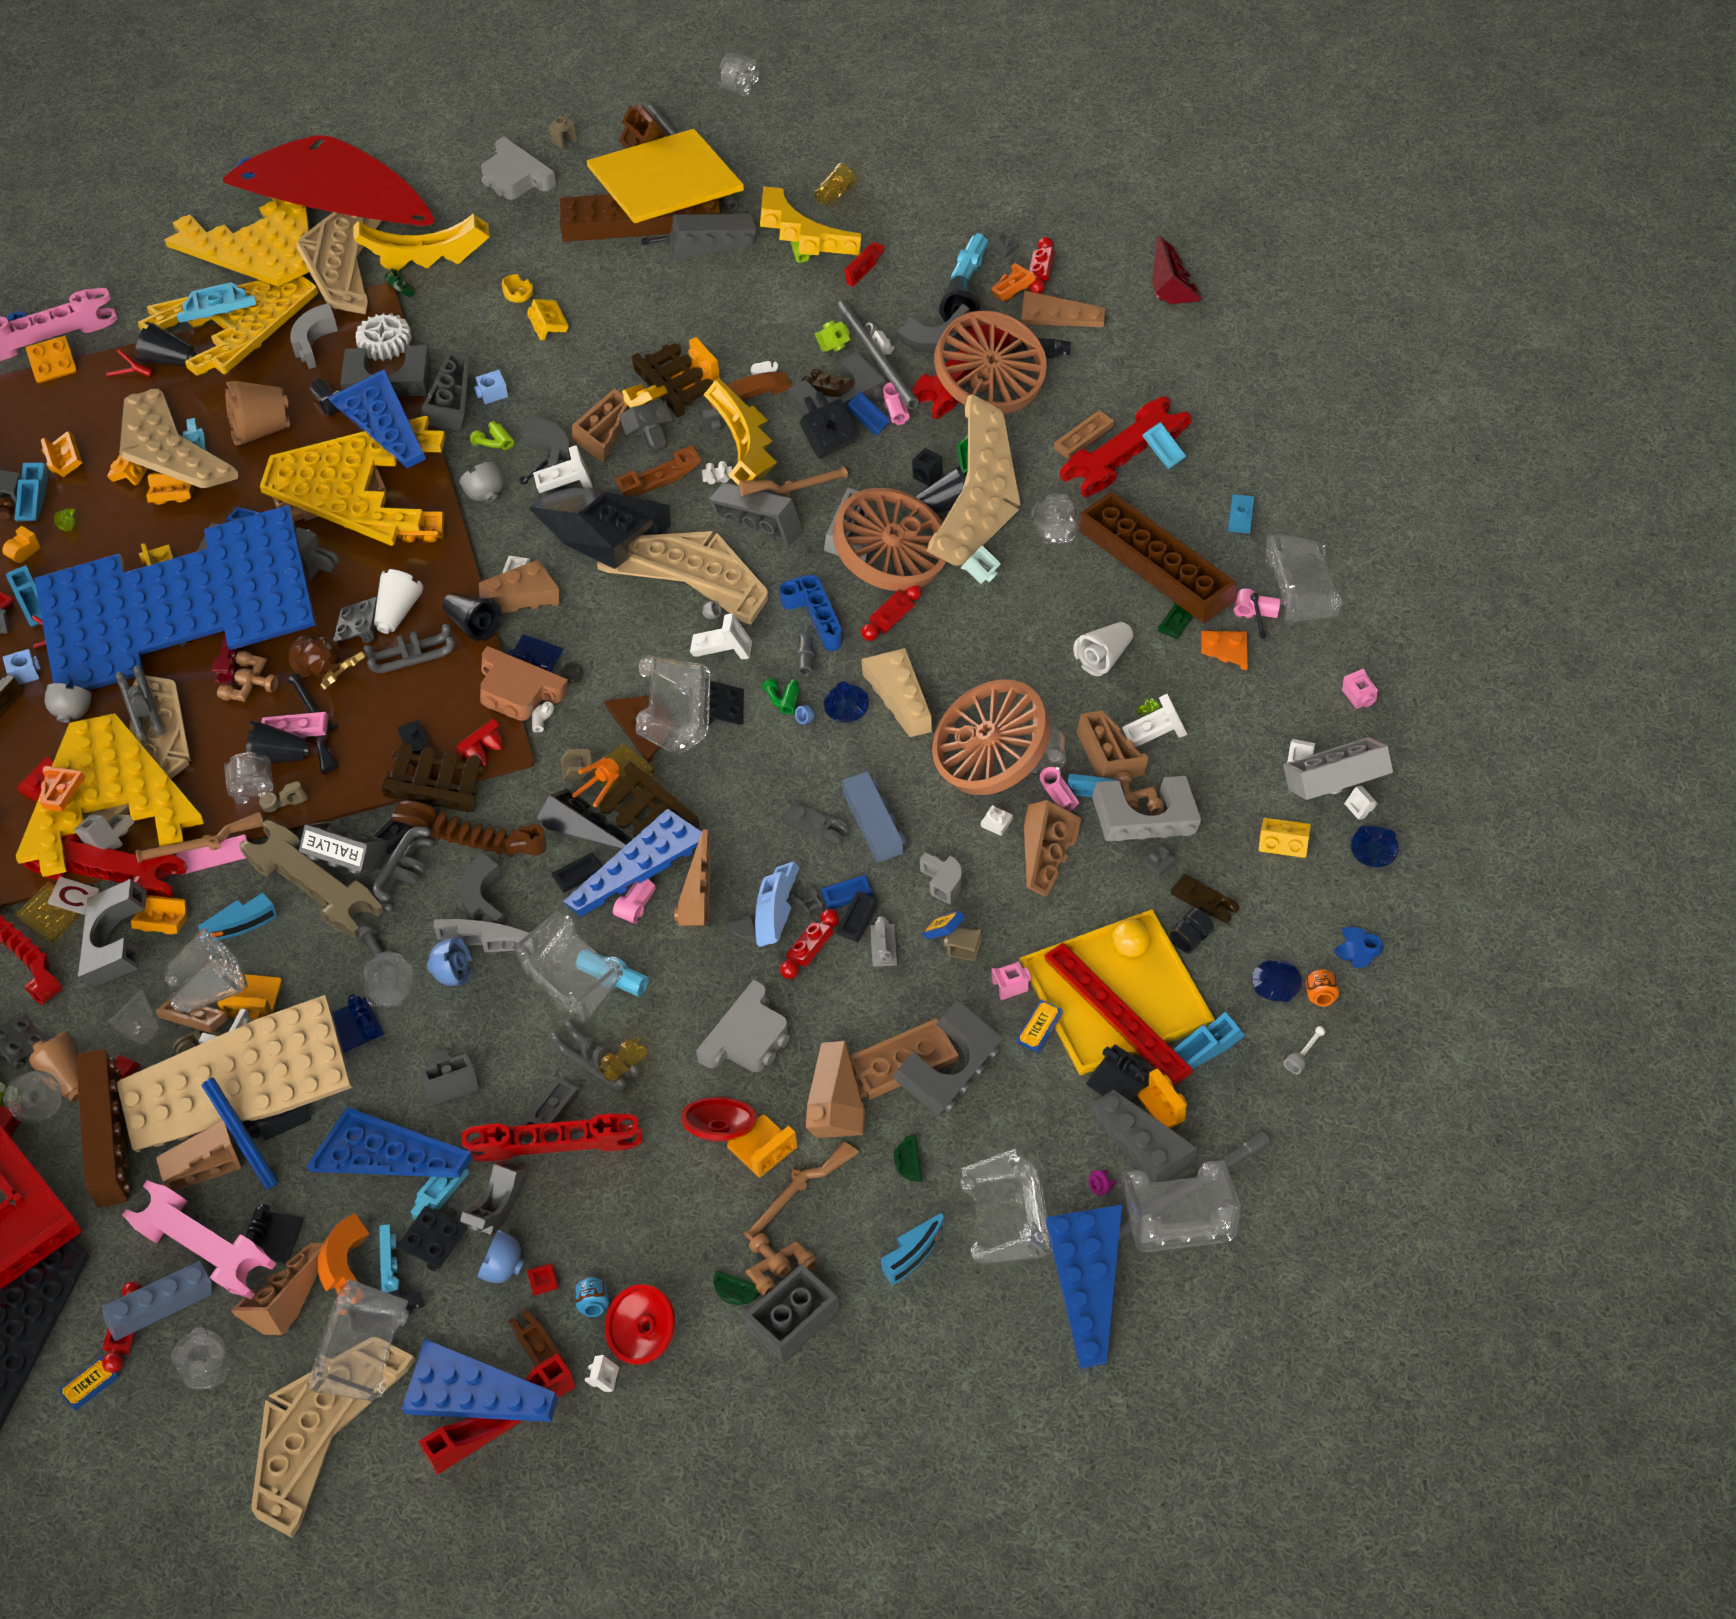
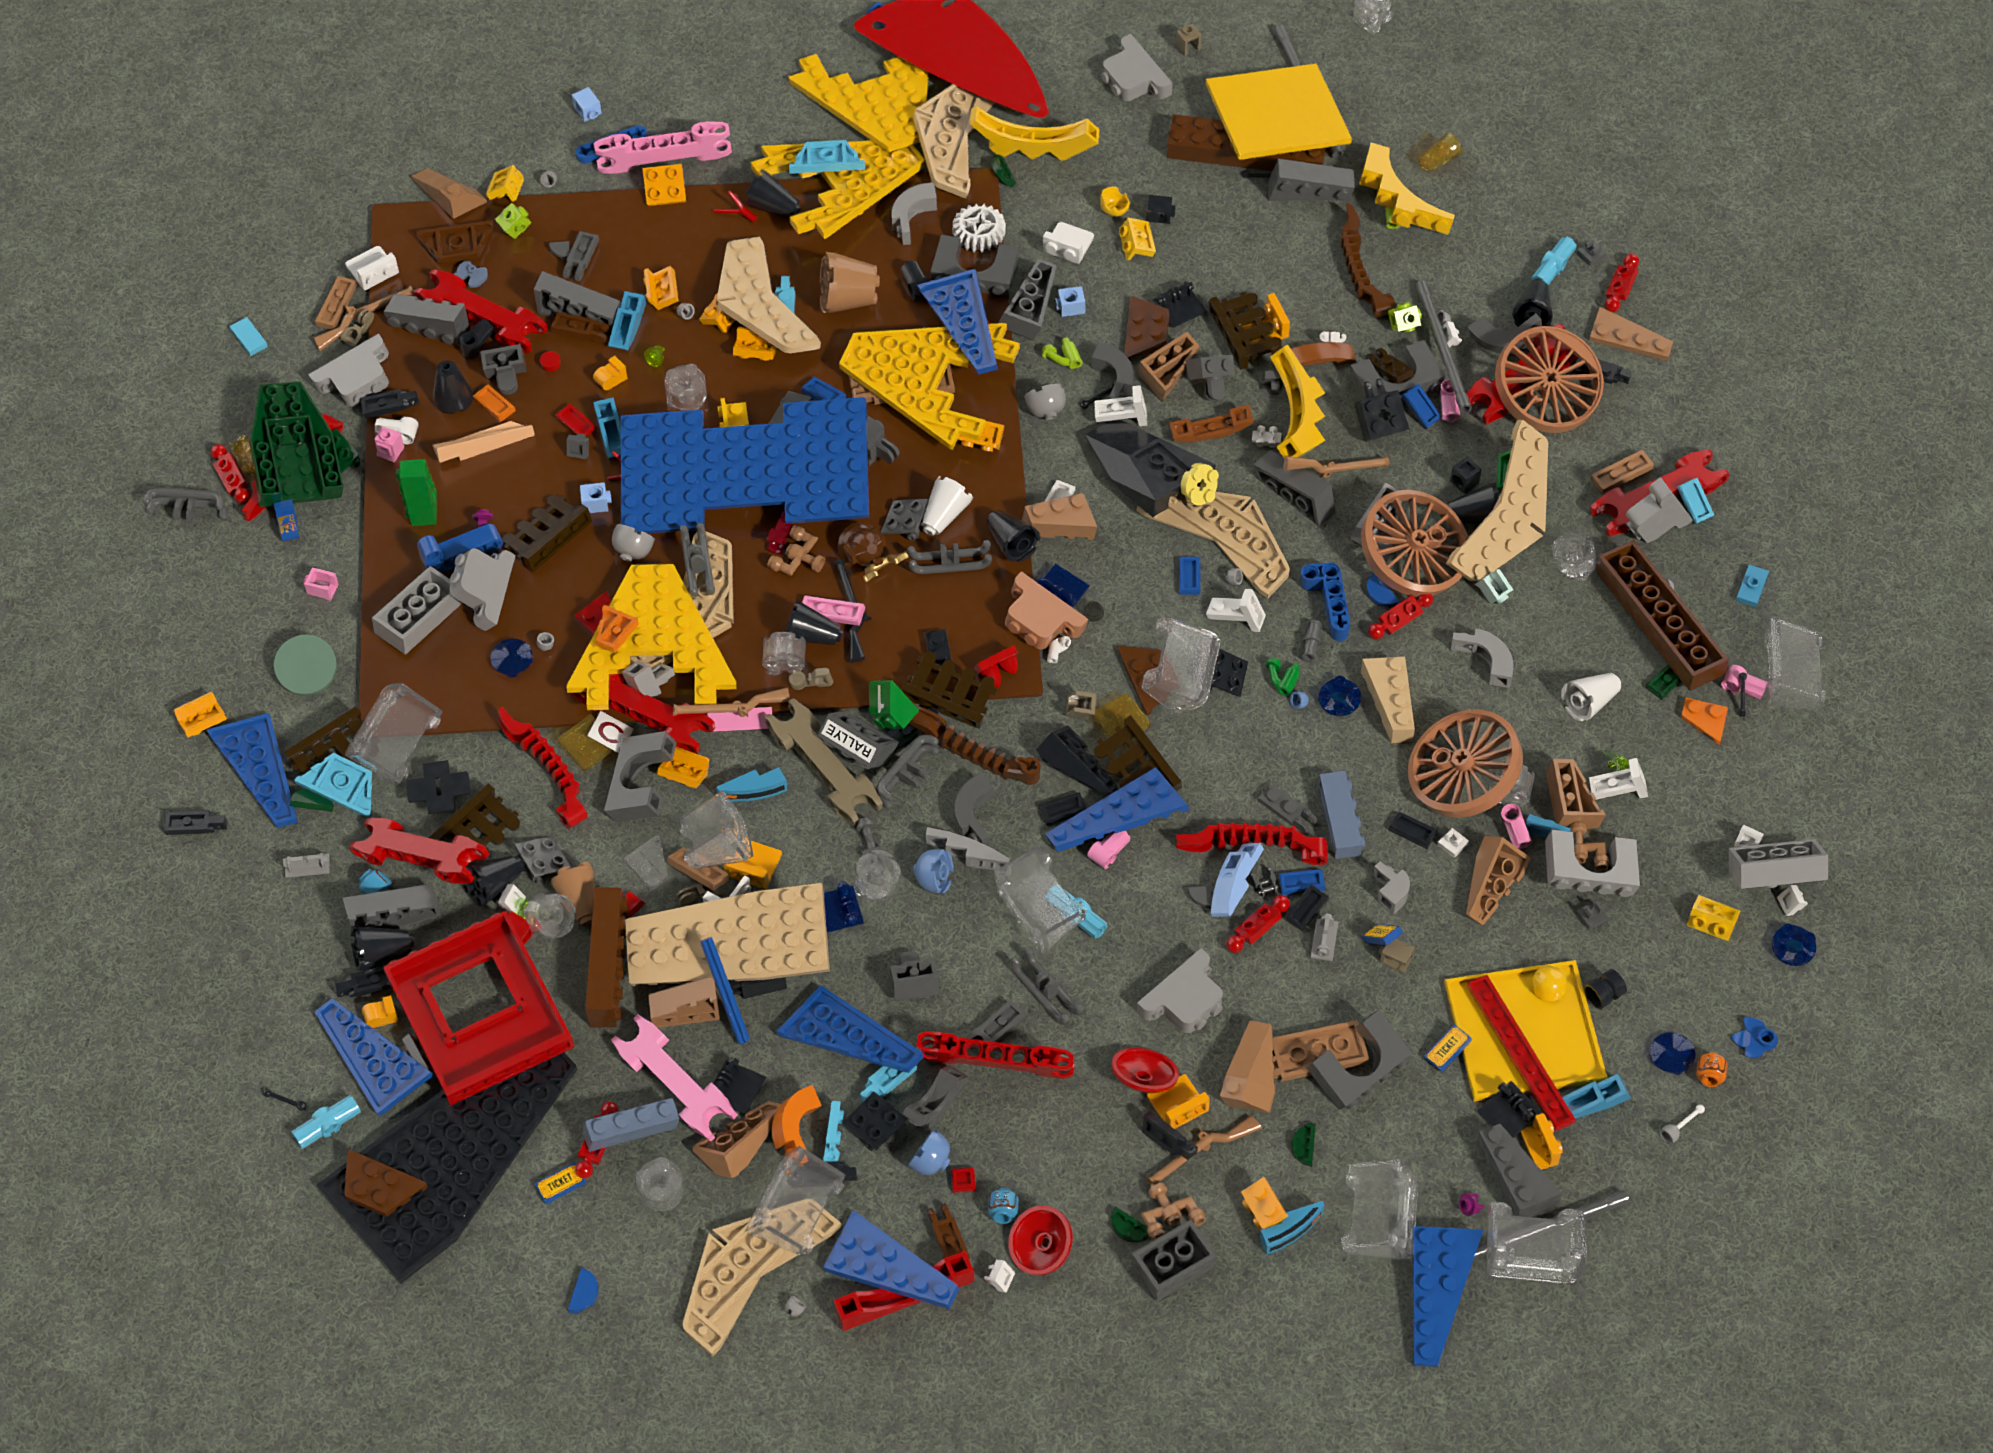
camera: 10 degrees right, 5 degrees up
(92, 468) = (688, 308): none -> light grey hinge
(101, 539) = (685, 387): none -> clear brick
(134, 1499) = (584, 1293): none -> blue tile
(371, 804) = (890, 705): none -> green slope
(377, 1458) = (795, 1305): none -> light grey hinge
(476, 335) = (1067, 242): none -> white bracket
(565, 287) = (1160, 209): none -> black brick
(572, 396) = (1146, 327): none -> reddish brown wing
(602, 369) = (1181, 303): none -> black hinge
(606, 771) = (1107, 717): orange plant -> none
(614, 1065) = (1062, 999): clear yellow hinge -> none
(639, 396) = (1208, 344): yellow bracket -> none
(640, 127) = (1264, 53): reddish brown piece -> none
(665, 619) = (1189, 575): none -> blue tile
(666, 526) = (1208, 478): none -> light yellow plate
(695, 897) = (1163, 861): medium nougat wedge -> none
(758, 1183) = (1167, 1136): none -> black hinge
(764, 283) = (1351, 251): none -> reddish brown piece
(850, 856) = (1312, 849): none -> red piece
(863, 263) = (1450, 244): red hinge -> none
(865, 595) = (1380, 593): none -> blue tile
(877, 1230) = (1264, 1204): none -> light orange bracket
(952, 817) = (1413, 830): none -> black tile
(991, 625) = (1492, 650): none -> light grey arch
(1009, 285) = (1591, 296): orange wing -> none
(1011, 980) = (1432, 999): bright pink window -> none
(1129, 461) = (1657, 513): none -> light grey brick
(1170, 277) = (1744, 321): dark red wedge -> none
(1204, 898) = (1625, 960): dark brown hinge -> none
(1359, 689) = (1819, 788): bright pink window -> none

